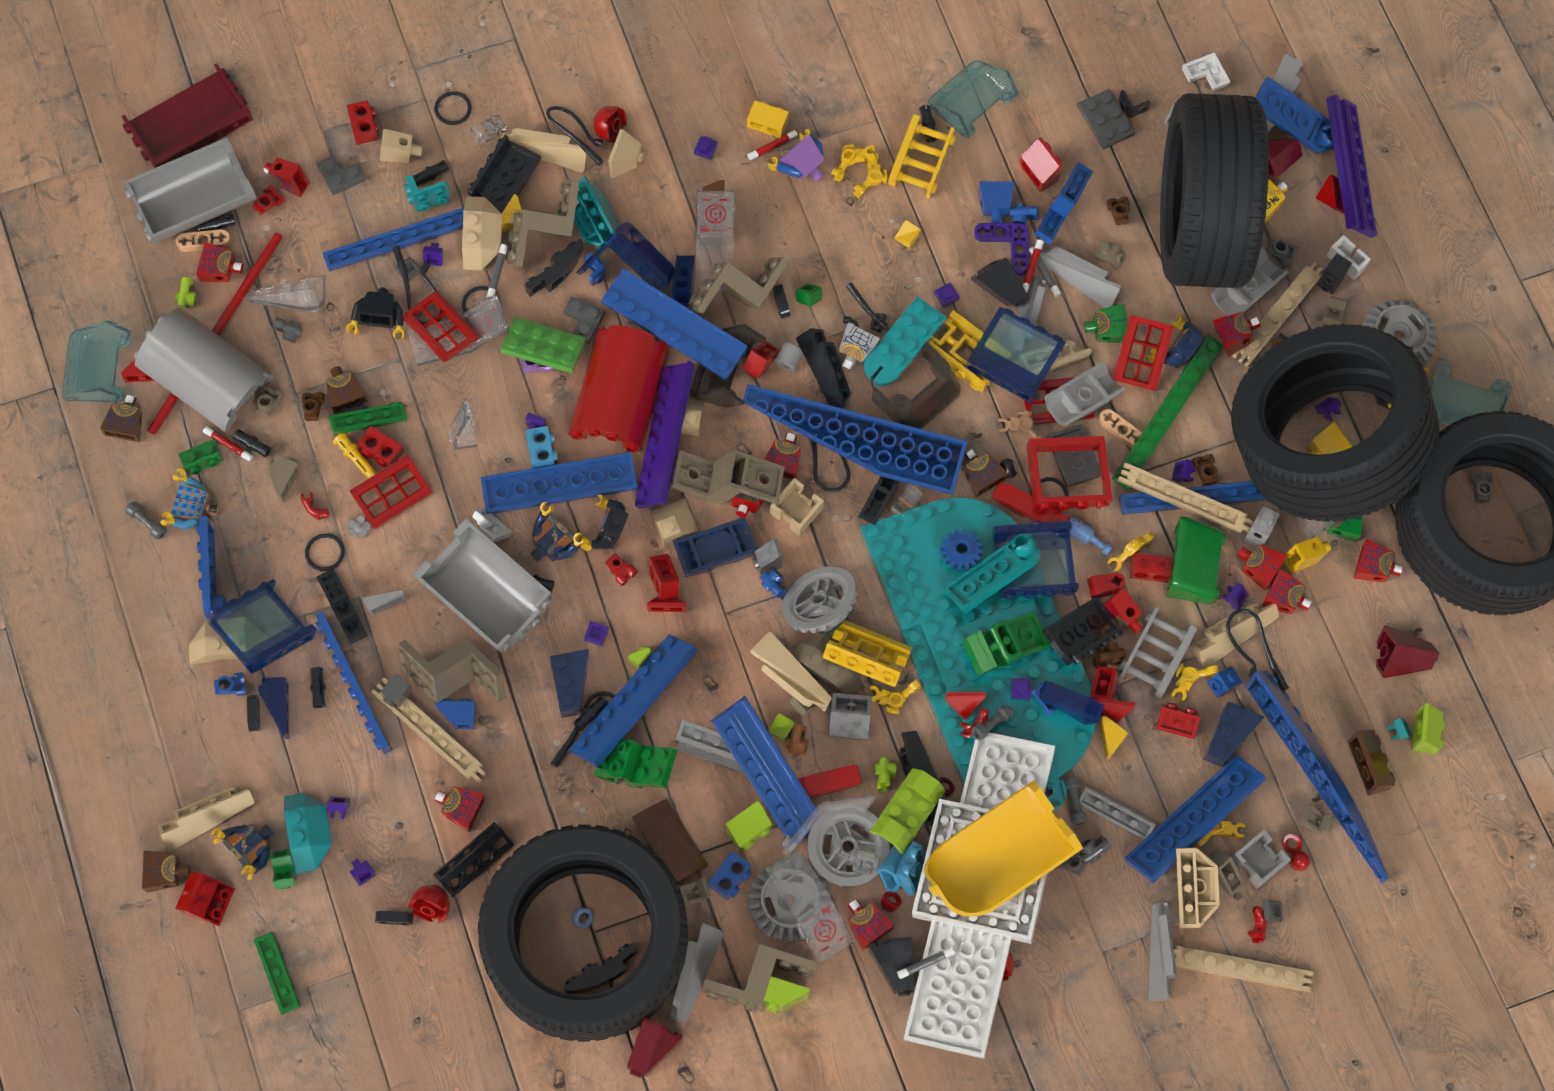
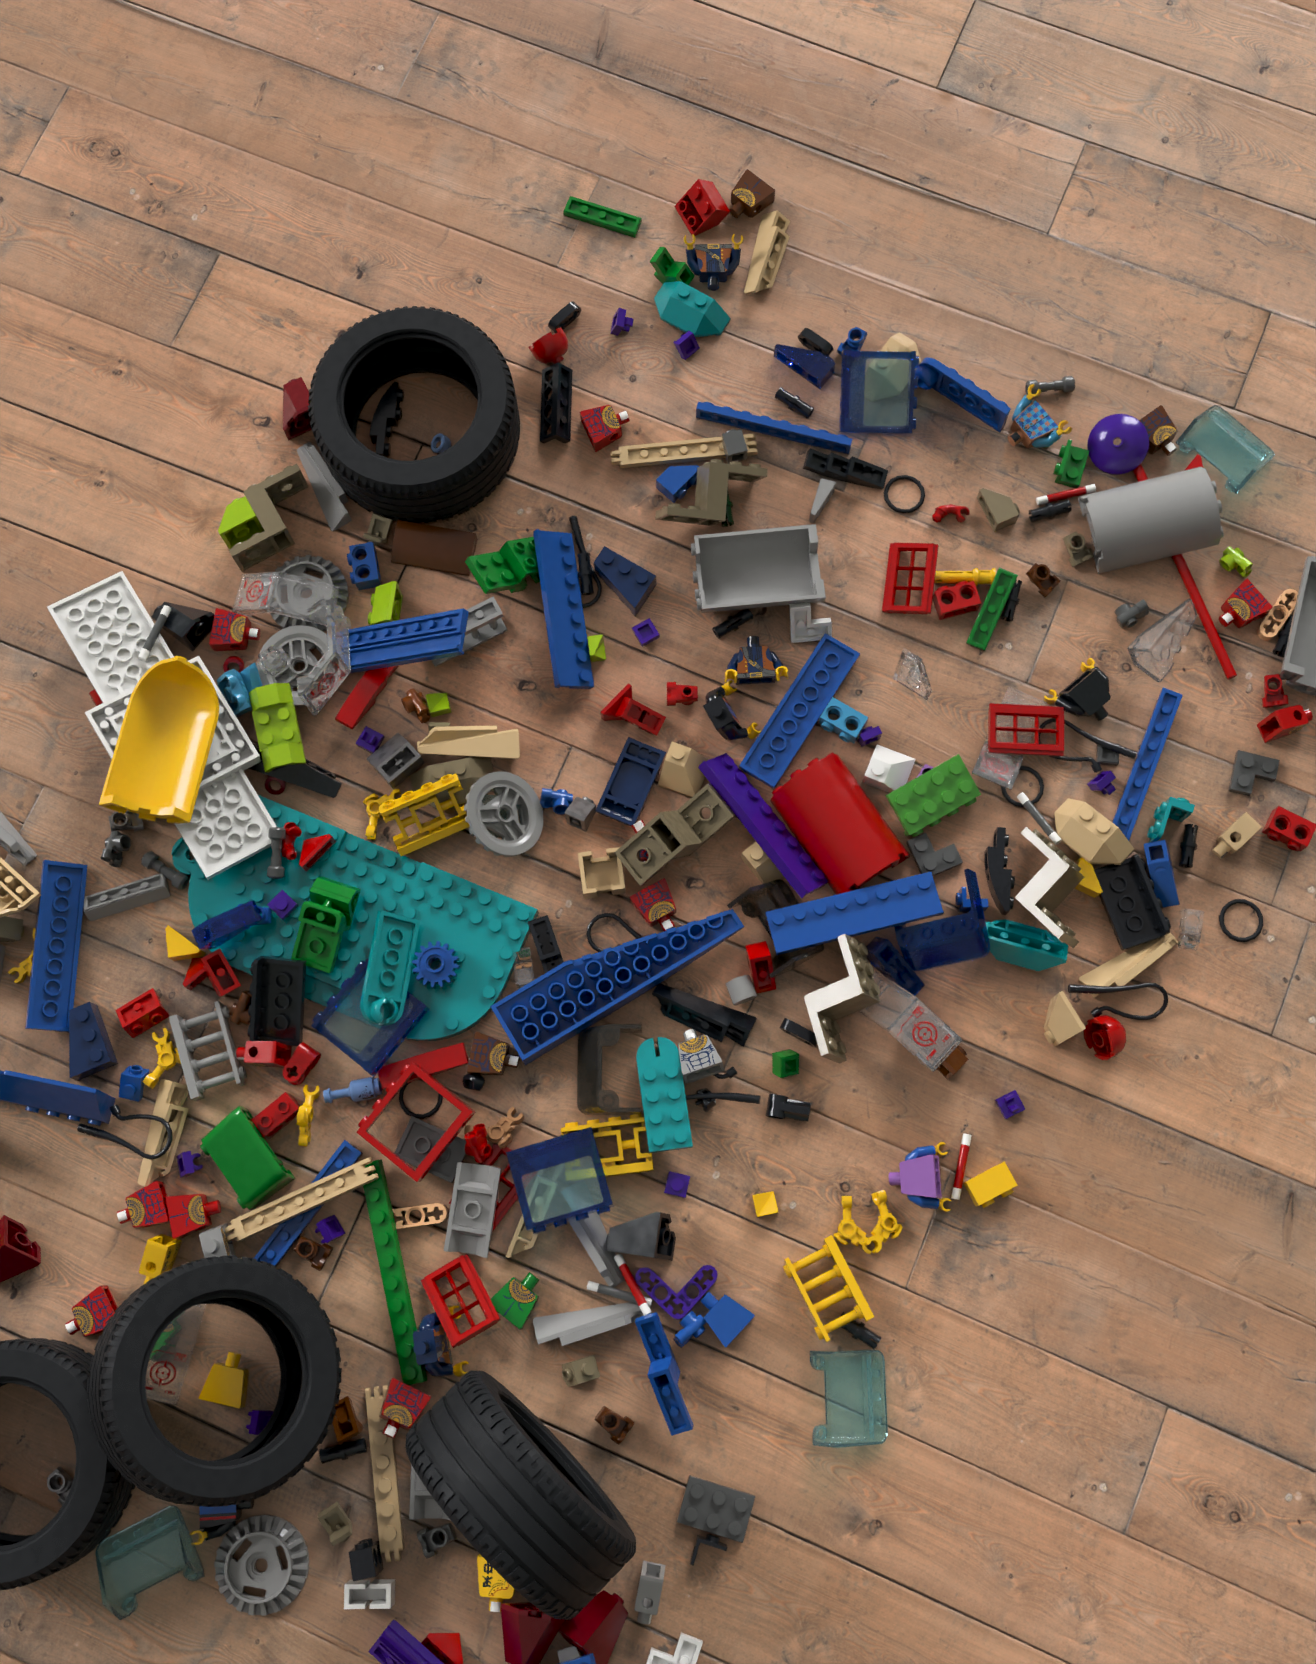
camera: 140 degrees right, 5 degrees up
(153, 446) = (1122, 457): none -> dark purple dish
(344, 390) = (1035, 612): reddish brown torso -> none
(359, 527) = (902, 534): light grey plant -> none
(465, 172) = (1162, 872): none -> blue slope
(548, 394) = (888, 769): none -> white slope
(838, 273) = (782, 1107): none -> black piece
(852, 751) = (369, 740): none -> dark purple tile
(885, 771) = (330, 748): lime plate -> none
(1041, 164) = (720, 1390): slope -> none
(1044, 426) = (476, 1143): none -> red plate

